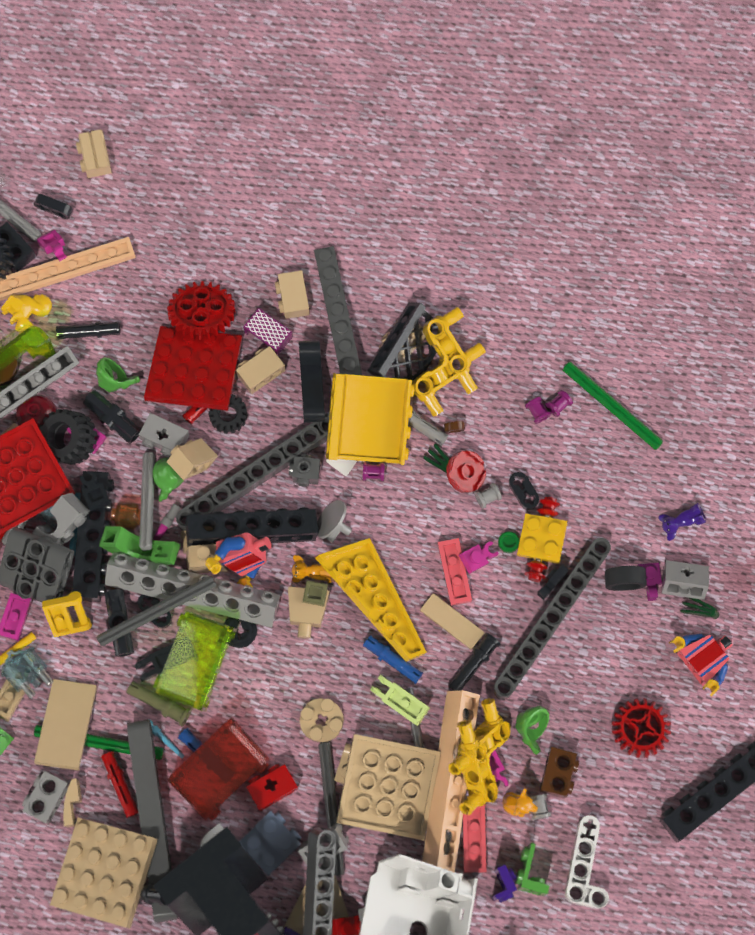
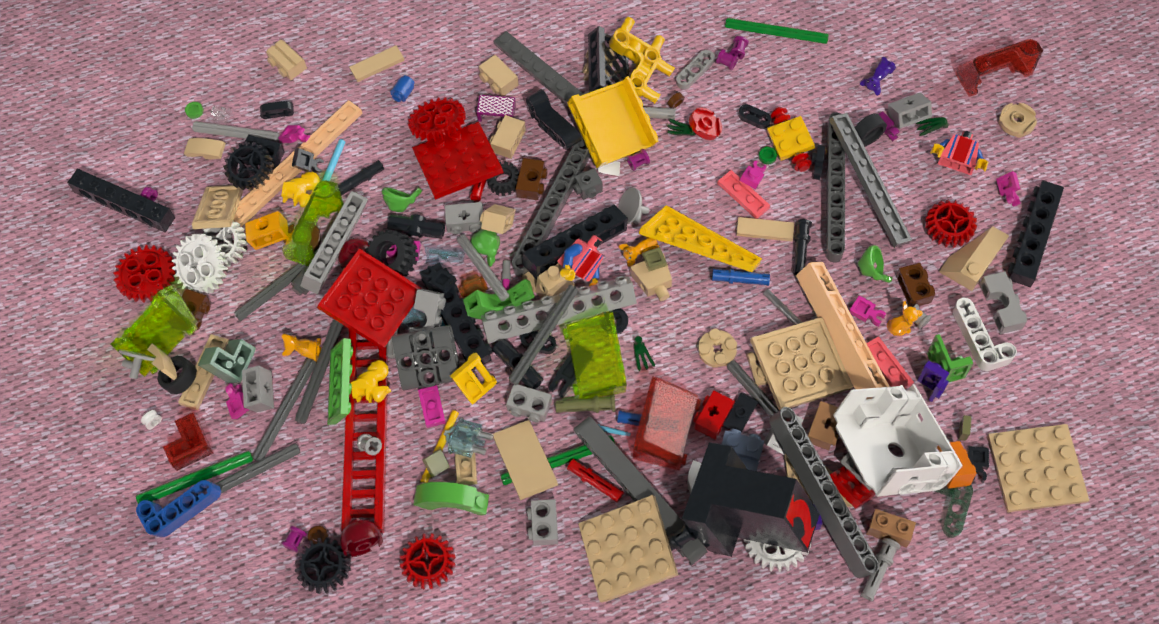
camera: 25 degrees left, 10 degrees down
(45, 283) = (304, 161): none -> plate
(72, 797) = (566, 510): tan slope -> none
(74, 298) = (334, 159): none -> medium azure bar
(109, 666) = (531, 398): none -> light grey brick
(122, 462) = (445, 254): none -> clear light blue slope
(182, 208) = (376, 63): none -> tan tile
(189, 254) = (402, 88): none -> blue brick
(247, 676) = (640, 349): none -> dark green piece
(259, 420) = (531, 170): none -> reddish brown brick
(299, 800) = (740, 413): none -> black plate
(356, 867) = (818, 434): none -> medium nougat brick
(402, 701) = (767, 299): yellowish green hinge -> none
(475, 754) = (849, 299): yellow pin -> none
(488, 495) = (731, 132): light grey bush -> none
(502, 394) = (696, 62): none -> light grey beam
(589, 633) = (870, 180): none -> dark grey plate
(636, 779) = (973, 259): none -> tan wedge
(641, 825) = (999, 287): none -> light grey arch
(728, 723) = (1008, 185): none -> dark pink plate

